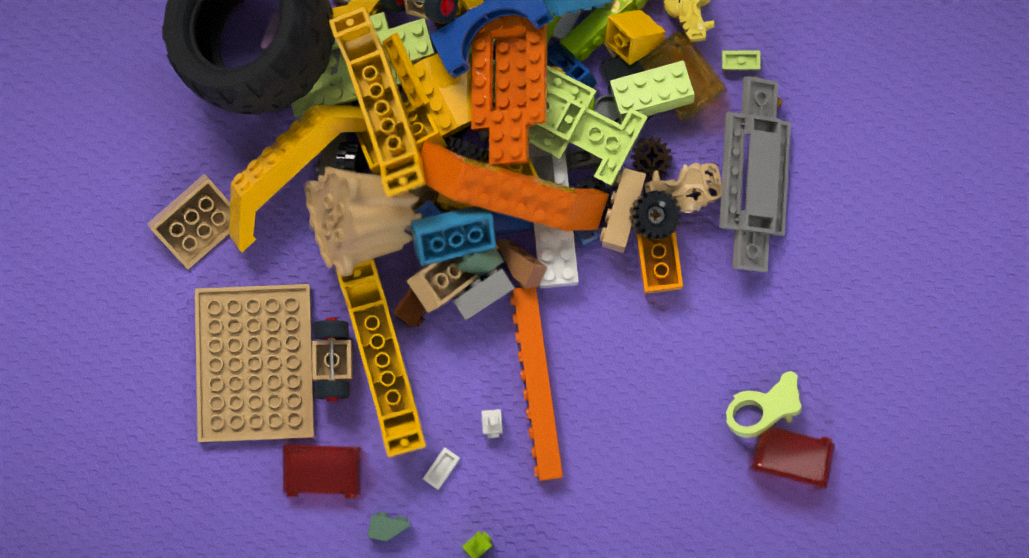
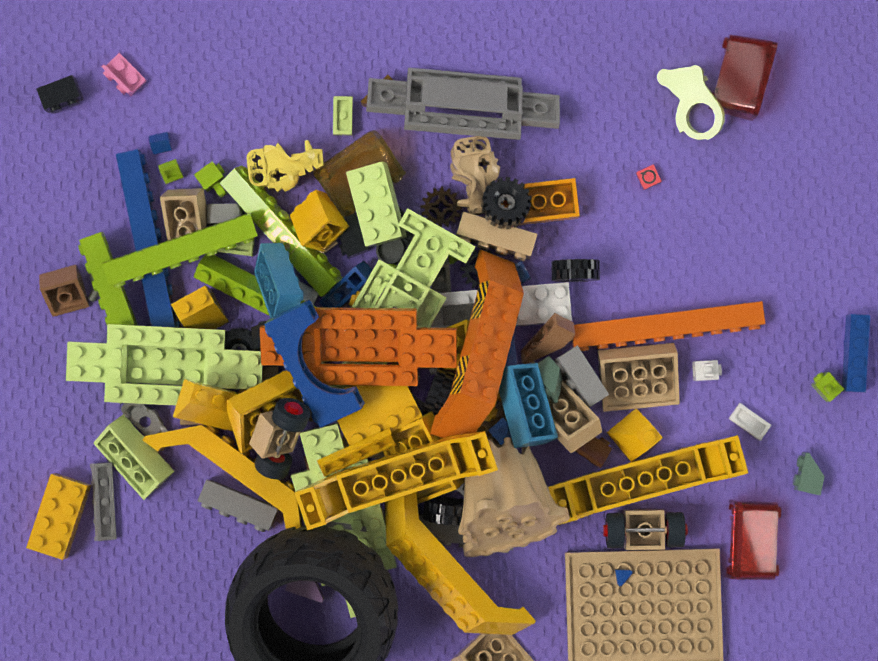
camera: 90 degrees left, 5 degrees up
(286, 340) = (622, 575): none -> blue slope
(427, 352) = (634, 435): none -> yellow slope
(485, 355) = (639, 376): none -> tan slope
(590, 288) = (575, 270): none -> black bush
(687, 364) = (648, 177): none -> coral tile

